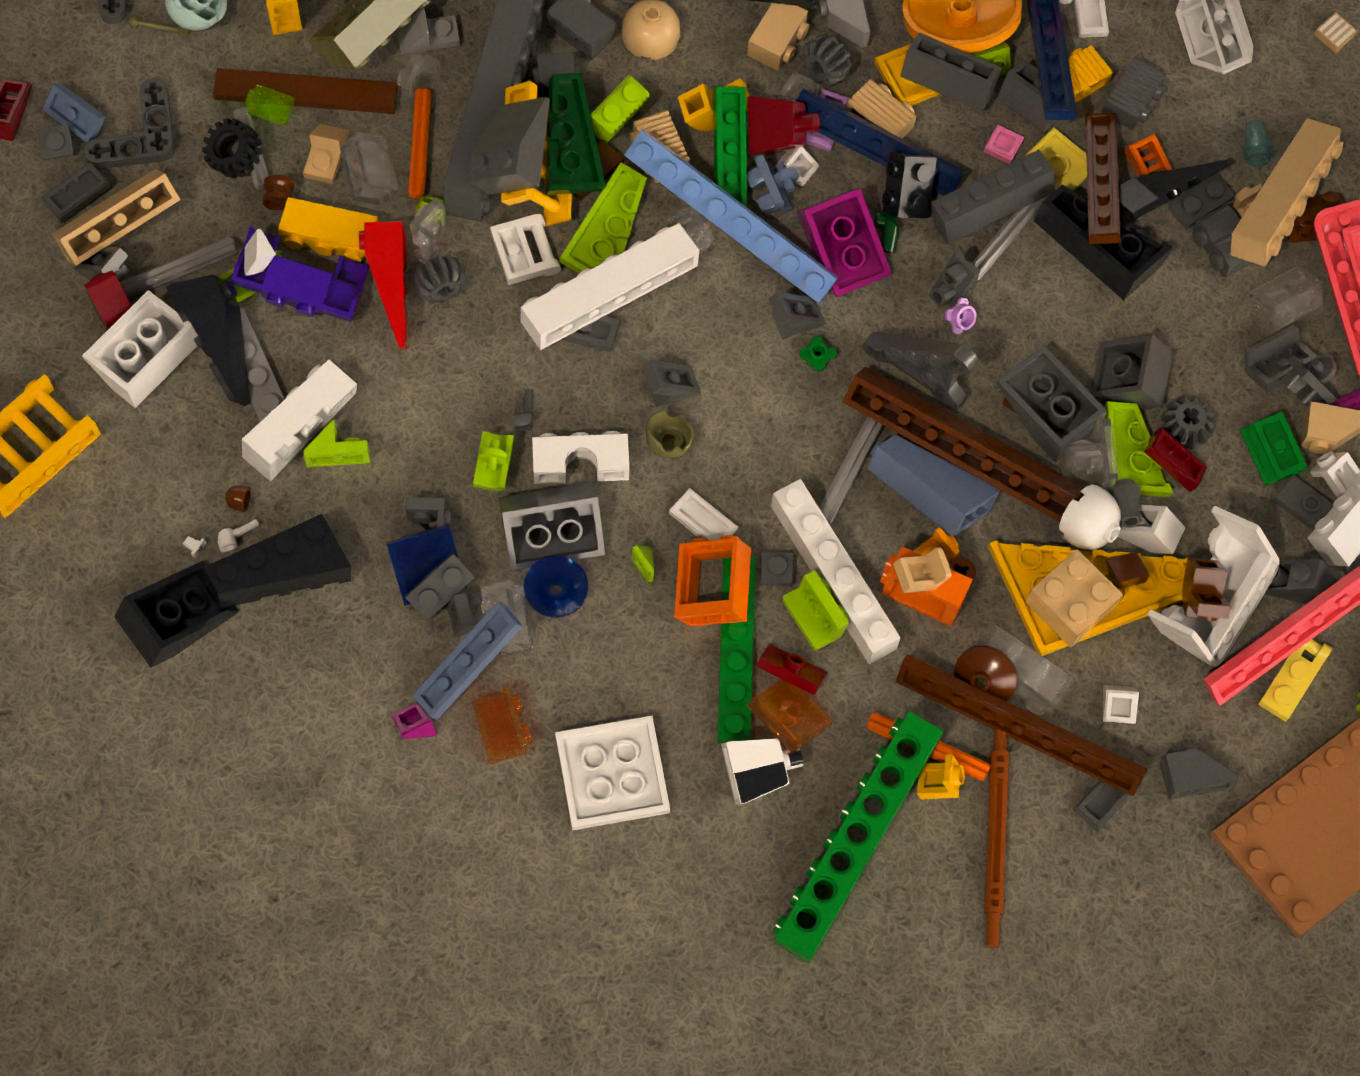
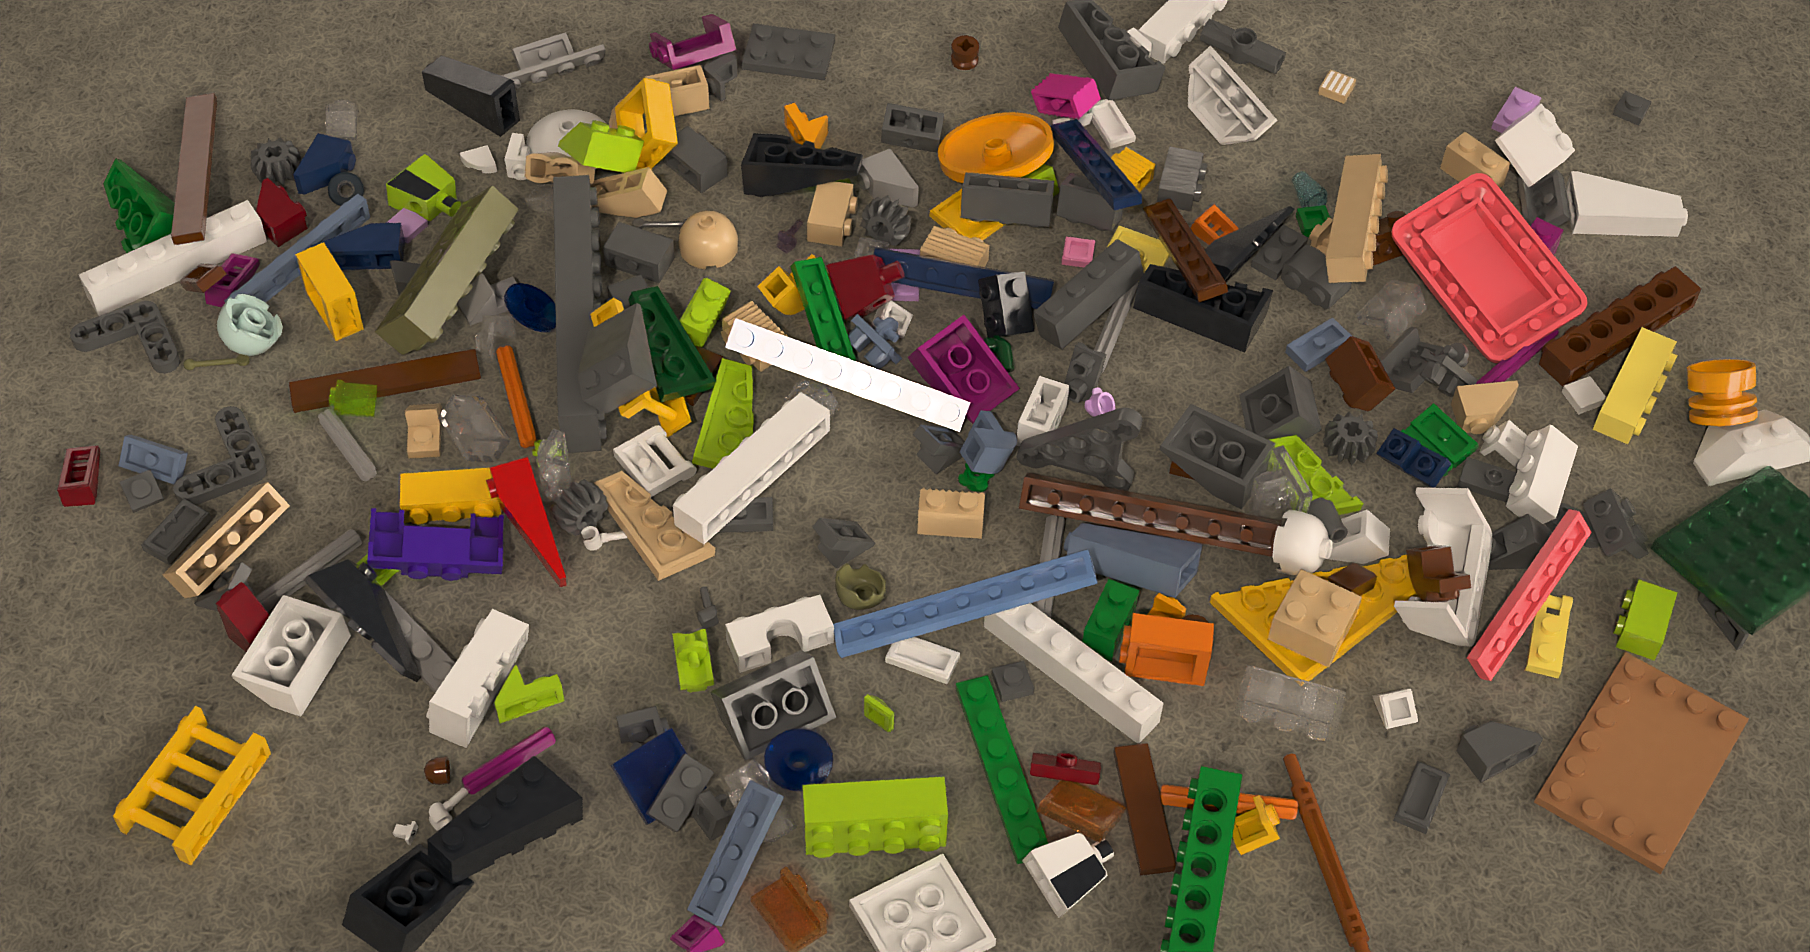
camera: 15 degrees left, 15 degrees down
(220, 140) = (316, 438): black tyre -> none
(257, 253) = (388, 527): white slope -> none
(277, 189) = (387, 475): reddish brown wheel -> none
(302, 506) = (508, 760): none -> magenta axle
(452, 312) = (599, 539): none -> white hand
(459, 54) = (531, 307): none -> clear blue dish
(499, 315) = (651, 527): none -> tan wing
(601, 664) = (875, 816): none -> lime brick
(713, 612) = (969, 733): orange window -> none
(725, 48) = (787, 240): none -> hand
(754, 486) = (964, 603): none -> medium blue plate
(778, 386) = (951, 513): none -> tan brick
(816, 611) = (1069, 705): lime bracket -> none
(837, 327) = (987, 445): none -> sand blue brick
(849, 728) = (1144, 809): none -> reddish brown tile
(885, 537) = (1106, 624): none -> green brick
(902, 308) = (1043, 409): none -> white brick
(923, 572) = (1166, 627): tan bracket -> none
(992, 667) = (1261, 701): reddish brown dish -> none
(1020, 725) = (1312, 752): reddish brown tile -> none
(1175, 459) = (1354, 472): dark red plate -> none
(1198, 314) = (1317, 344): none -> sand blue plate
(1223, 359) = (1359, 374): none -> reddish brown brick
(1240, 461) = (1413, 458): none -> dark blue slope
(1247, 174) = (1311, 216): none -> green plate

